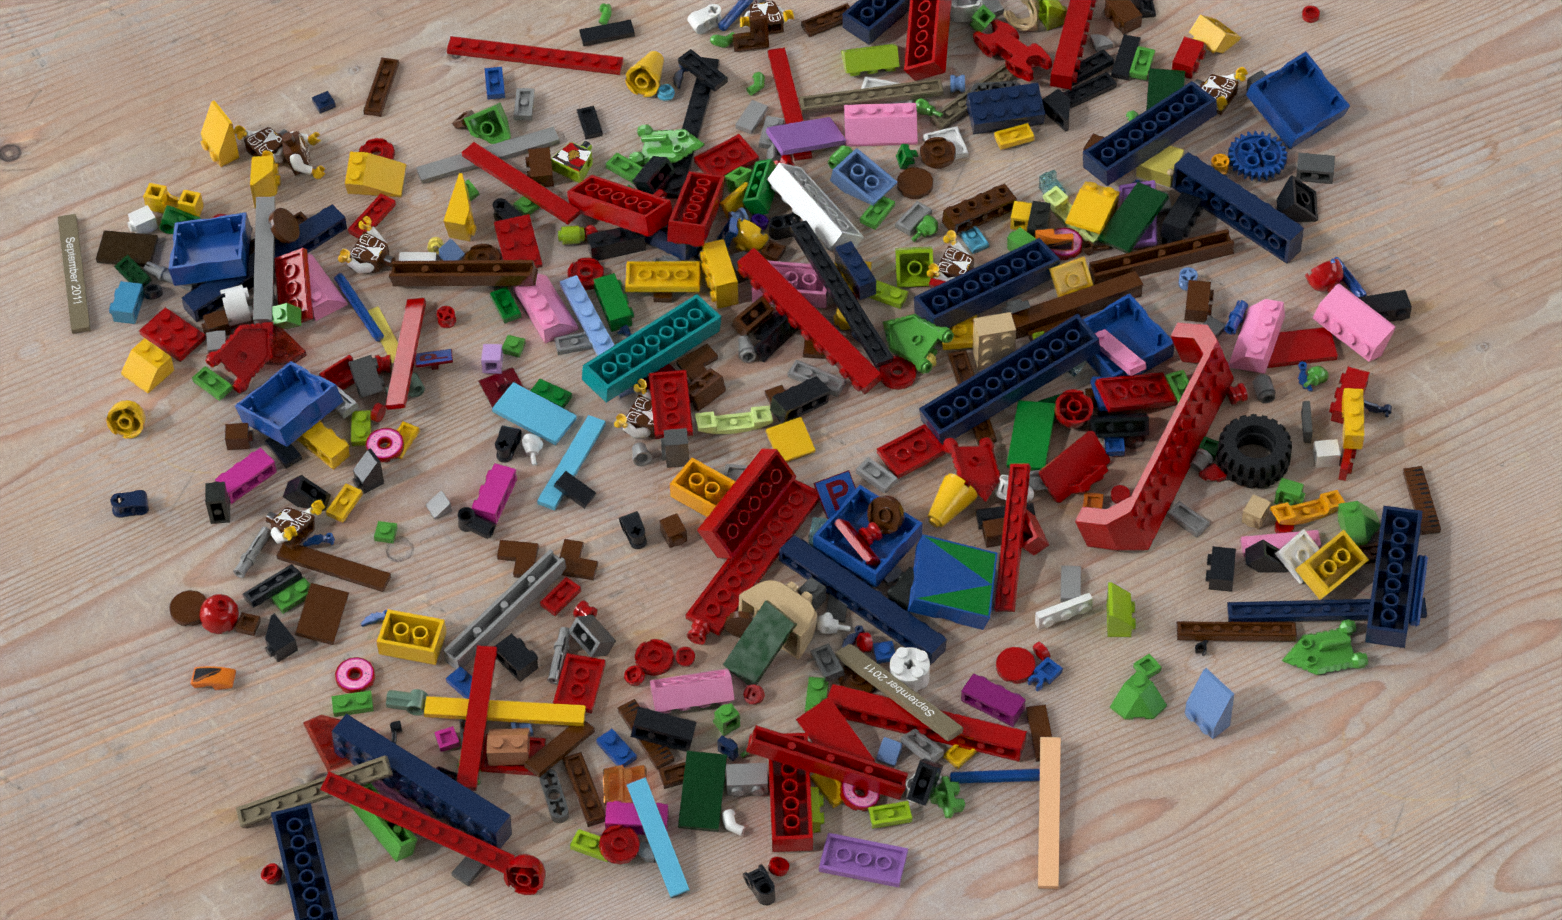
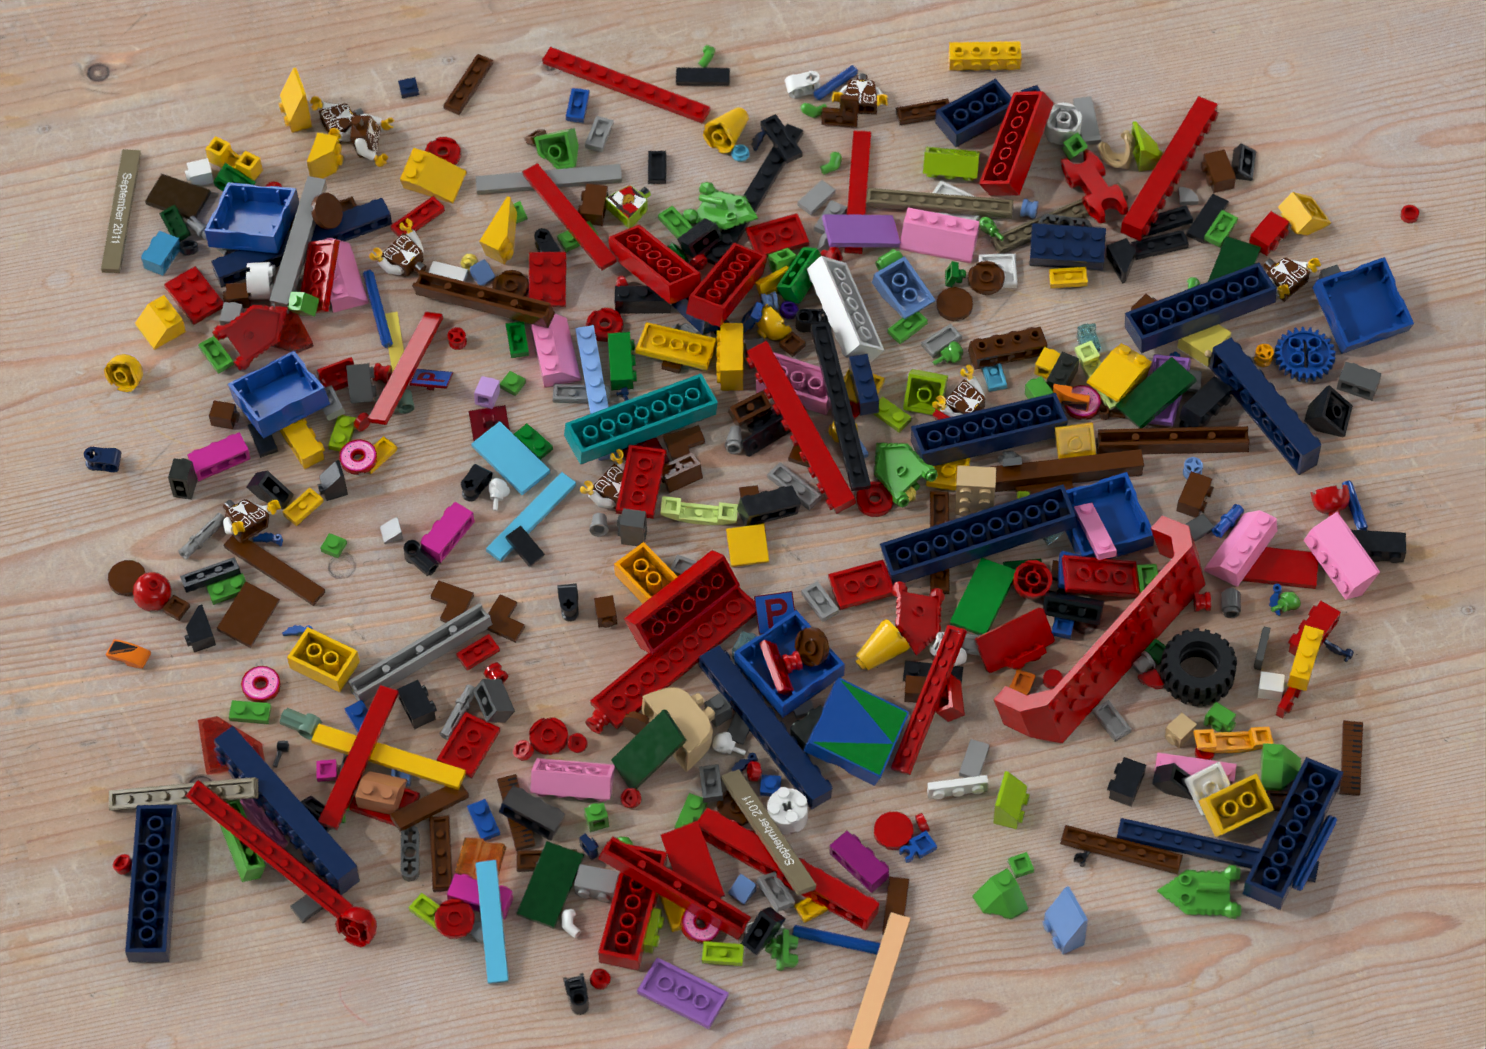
camera: 15 degrees right, 5 degrees up
(571, 235) = (602, 281): lime brick -> none

